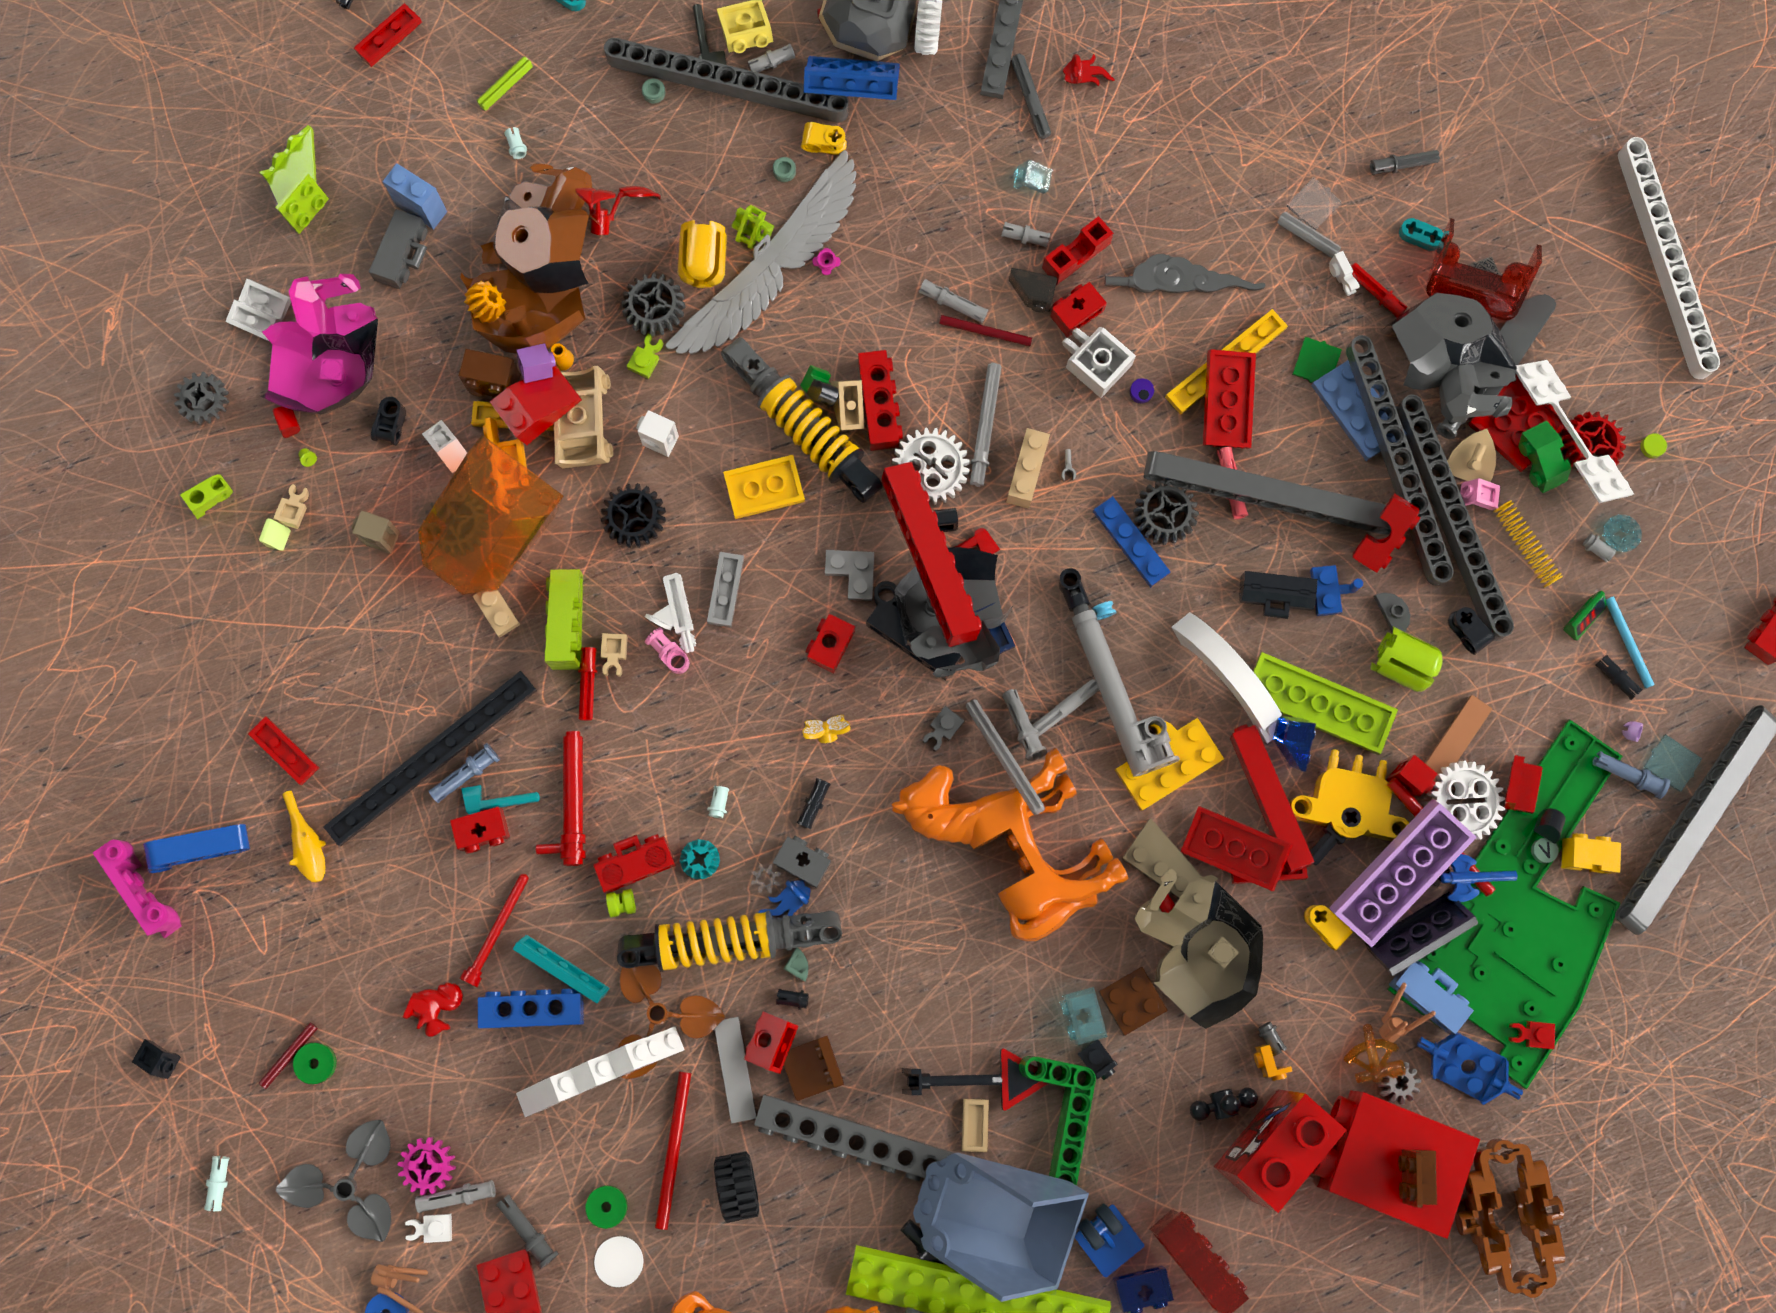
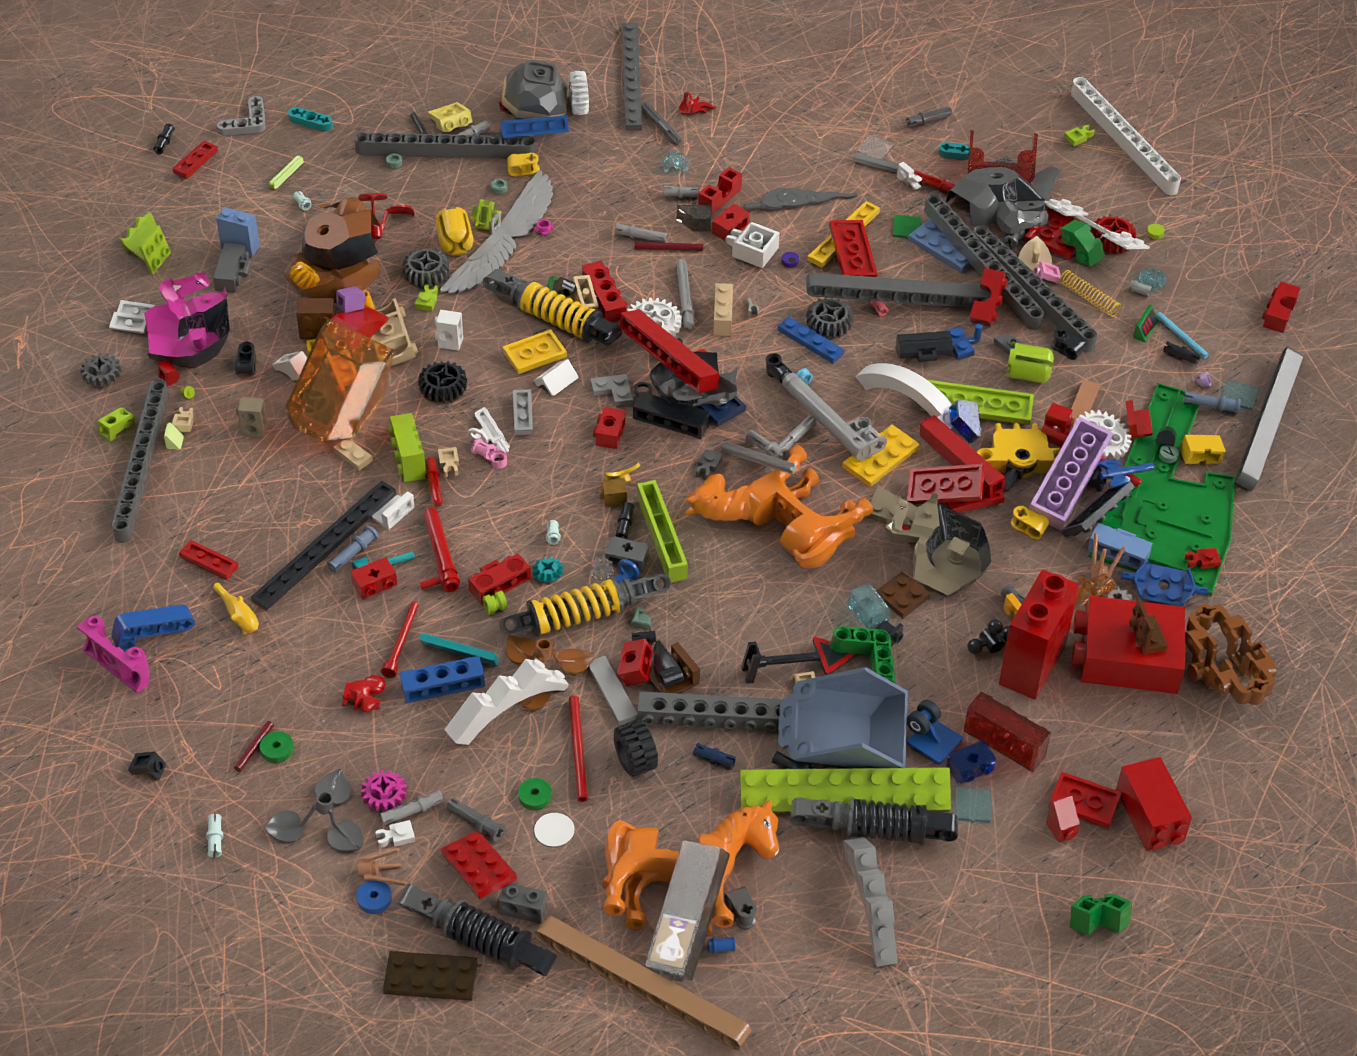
camera: 10 degrees left, 30 degrees down
(229, 576) = (140, 461): none -> dark grey beam
(527, 718) = (394, 510): none -> white panel
(782, 537) = (557, 377): none -> white panel
(805, 1058) = (666, 666): none -> black piece
(809, 754) = (613, 492): none -> pearl gold brick
(834, 1201) = (714, 755): none -> dark blue pin
(854, 838) = (662, 531): none -> lime brick
(1602, 244) = (1077, 136): none -> lime plate

